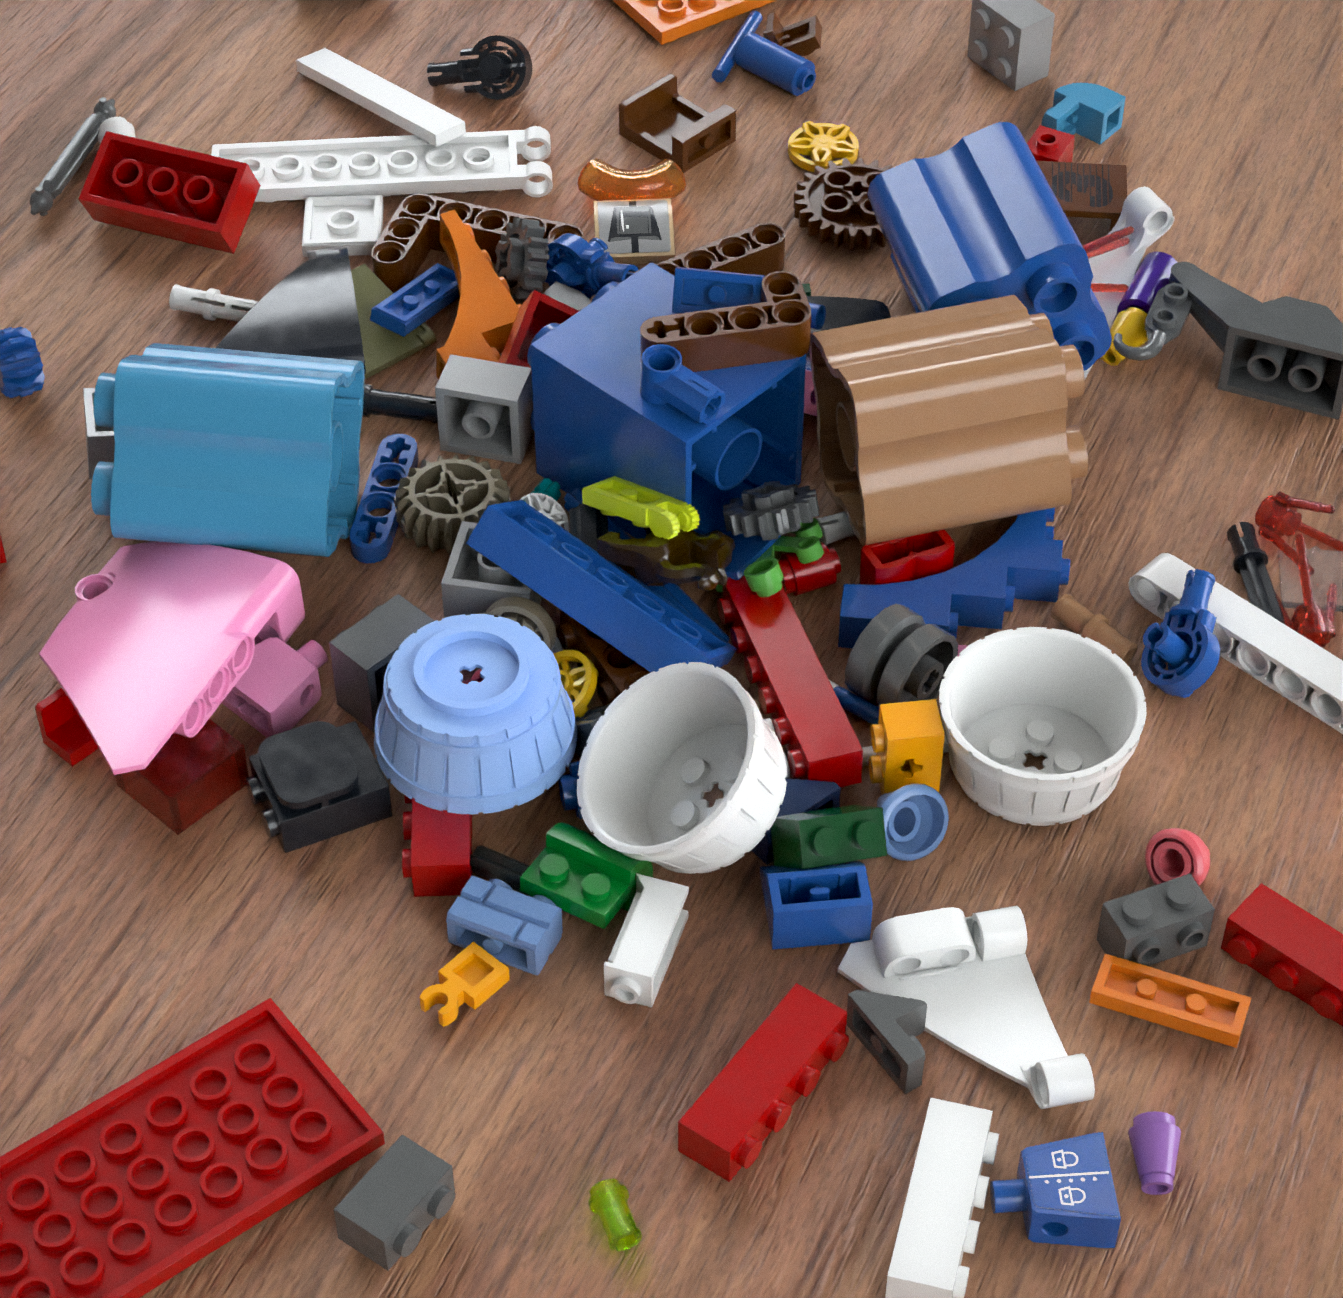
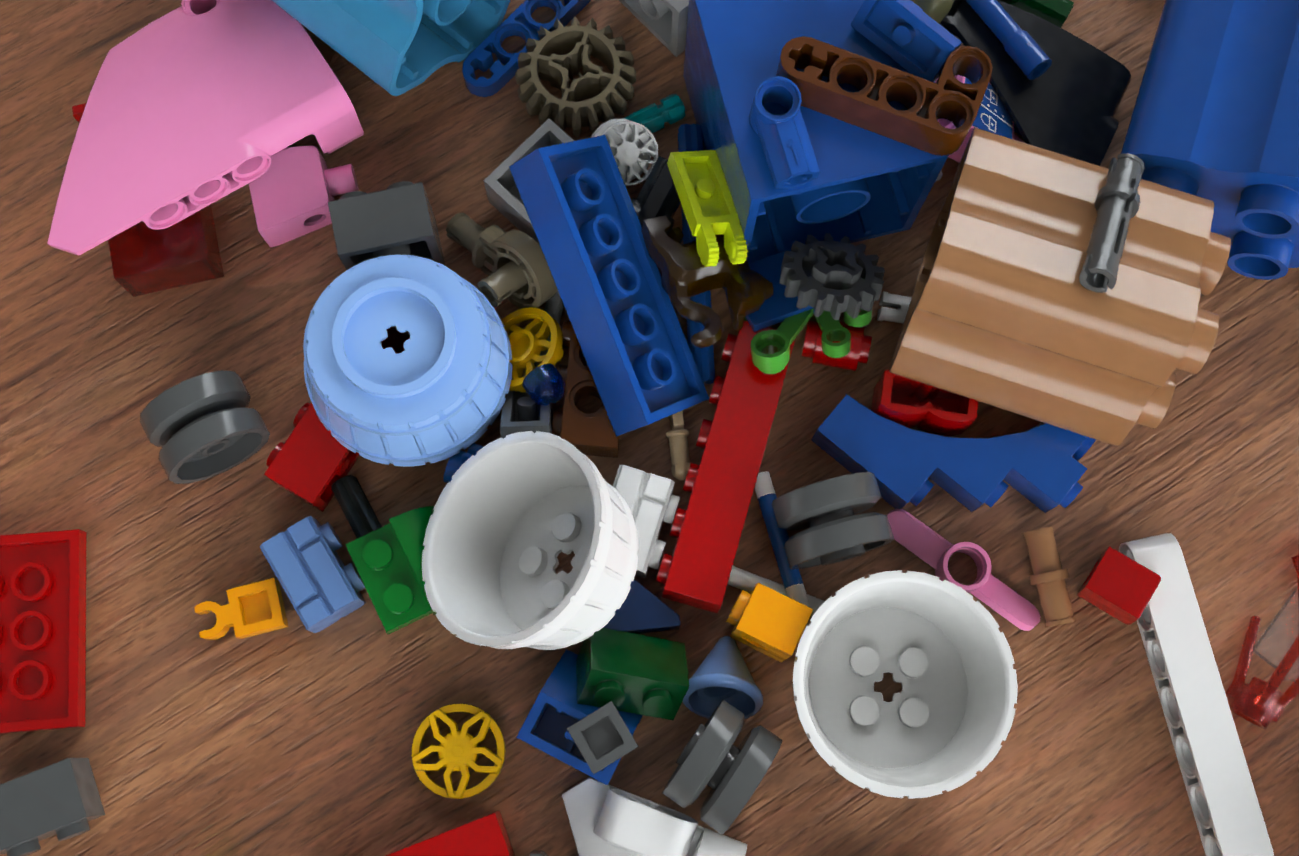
camera: 30 degrees right, 30 degrees up
(317, 784) = (253, 324): black brick -> none
(333, 859) = (204, 426): none -> dark grey wheel
(599, 690) = (544, 385): none -> clear blue hinge
(646, 941) = (411, 673): white window -> none
(727, 985) = (458, 751): none -> yellow wheel
(844, 864) = (602, 737): none -> dark grey plate
(948, 854) = (725, 768): none -> dark grey wheel
(952, 316) = (1115, 207): none -> dark grey pin
(1146, 601) = (1119, 586): none -> red panel
(1183, 641) = (1116, 656): blue pin -> none
(1251, 564) = (1249, 610): black axle -> none

